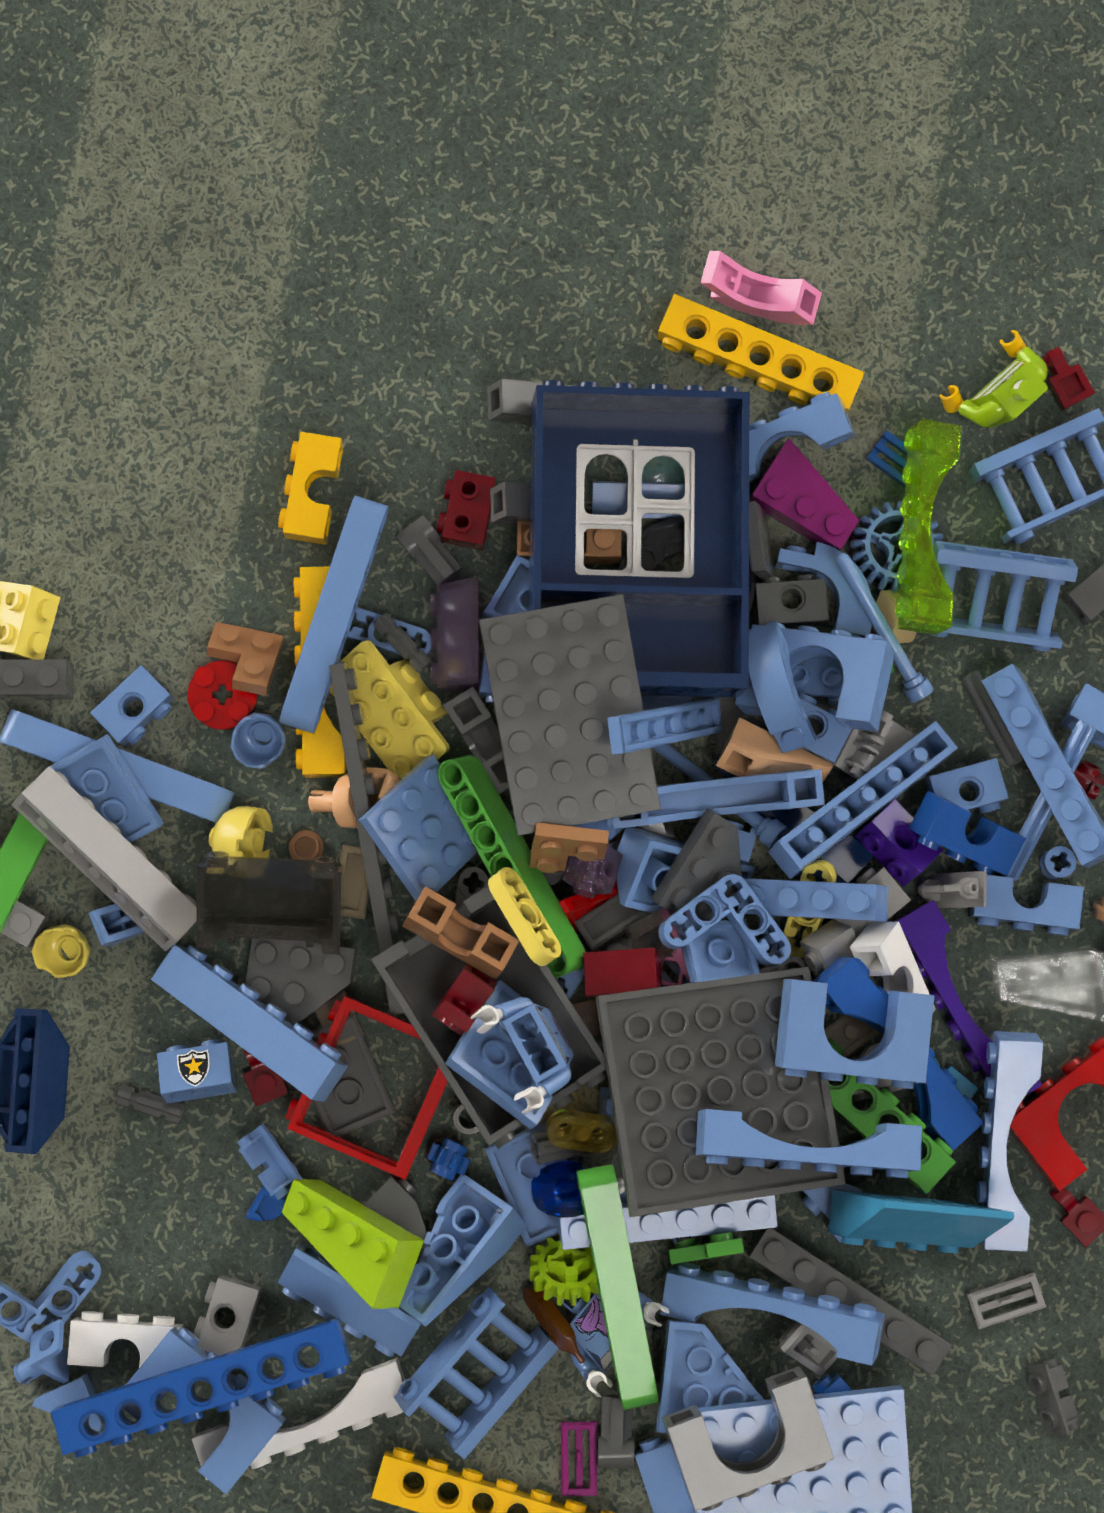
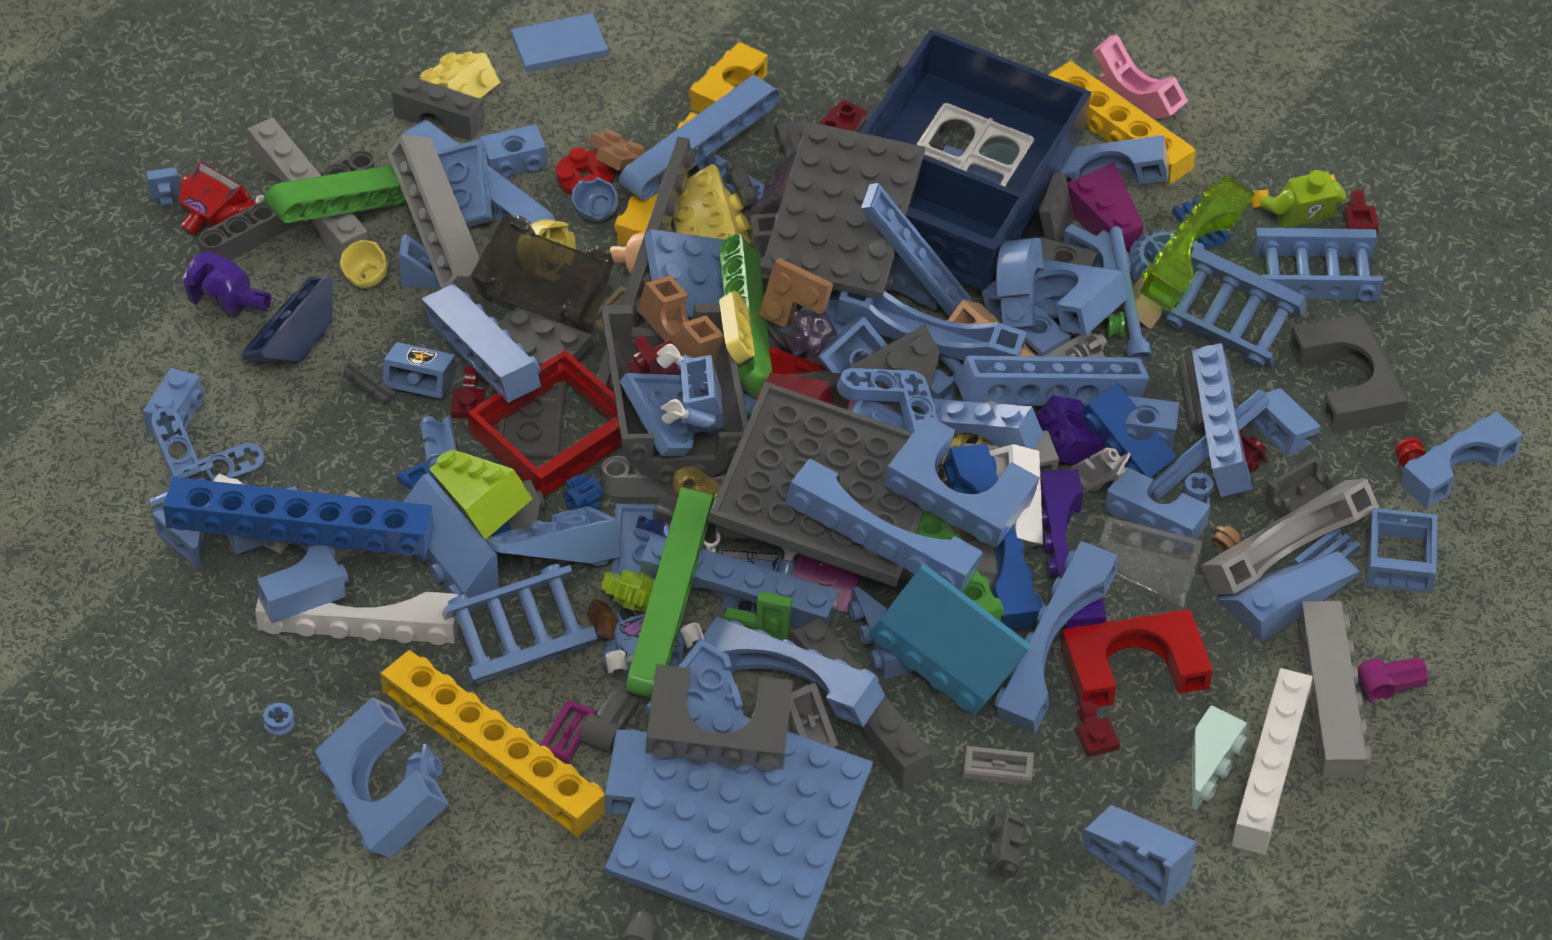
camera: 25 degrees right, 35 degrees down
(94, 505) = (559, 42): none -> medium blue tile

